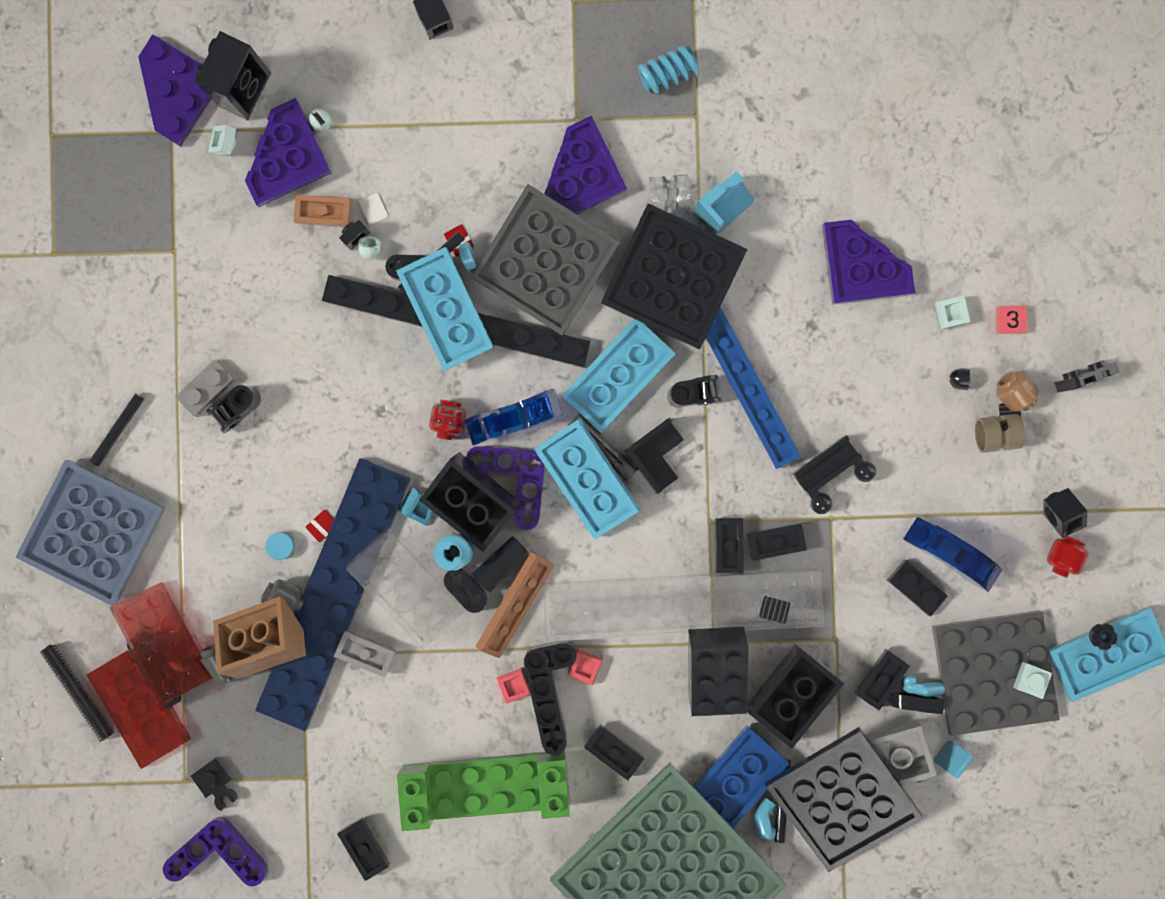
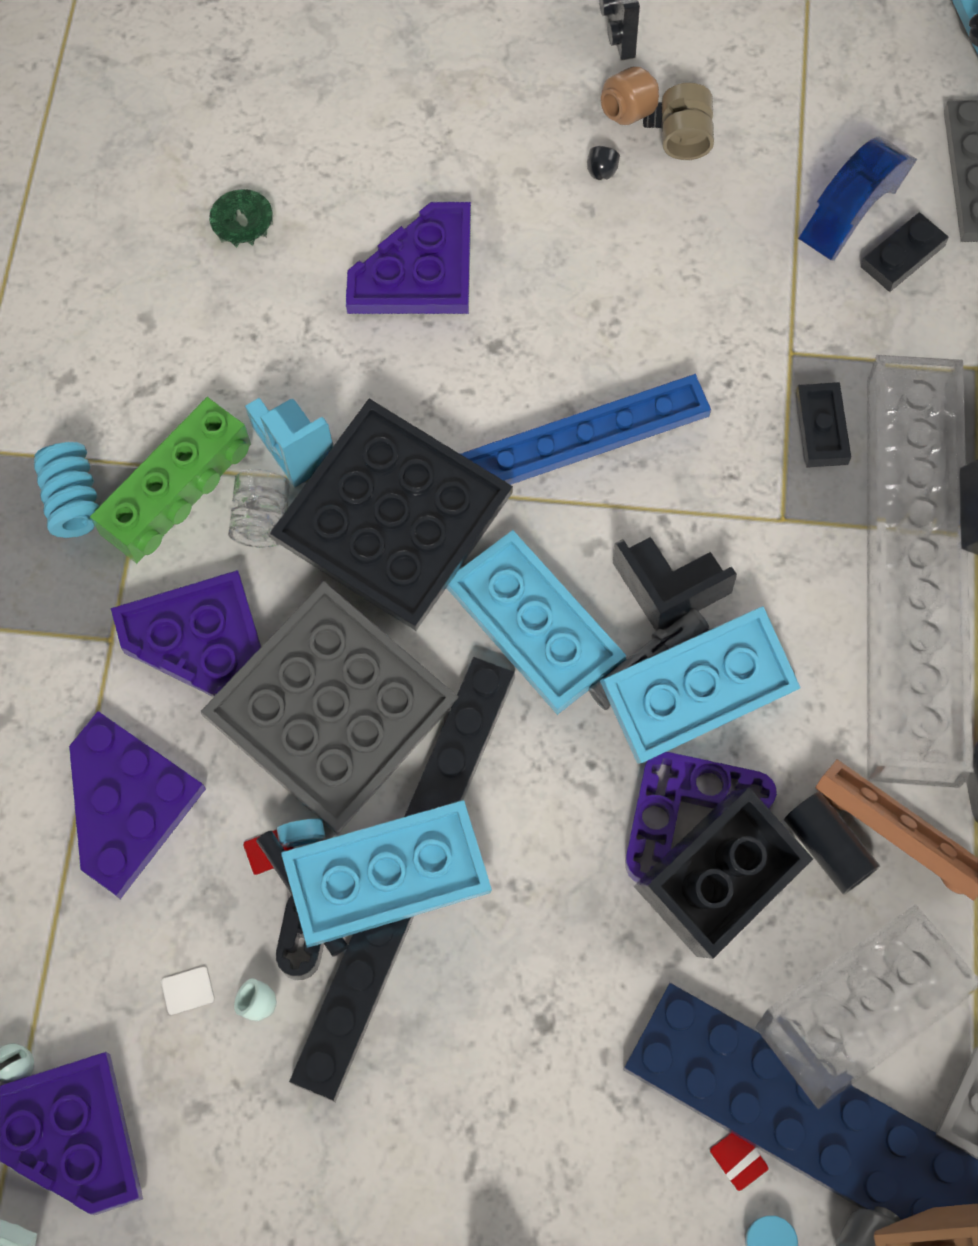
camera: 80 degrees left, 20 degrees down
(322, 210) = (174, 1077): nougat plate -> none
(353, 233) = (225, 1024): black plate -> none
(414, 508) = (718, 979): medium azure slope -> none
(443, 556) = (826, 909): medium azure piece -> none
(447, 419) = (574, 902): red head -> none
(460, 594) = (864, 903): black beam -> none
(476, 149) = (124, 802): none -> dark purple plate
(513, 418) = (585, 783): clear blue arch -> none
(683, 135) = (172, 480): none -> bright green brick
(699, 392) = (577, 508): black piece -> none
(729, 545) = (824, 491): black plate -> none
(774, 609) = (934, 423): black sticker -> none
(826, 467) = (715, 345): black gear -> none
(888, 128) = (252, 206): none -> clear green gear
(952, 312) = (505, 162): light aqua plate -> none
(1011, 319) = (526, 97): coral tile -> none
(1065, 512) = (808, 56): black brick -> none
(1067, 556) = (871, 61): red head -> none

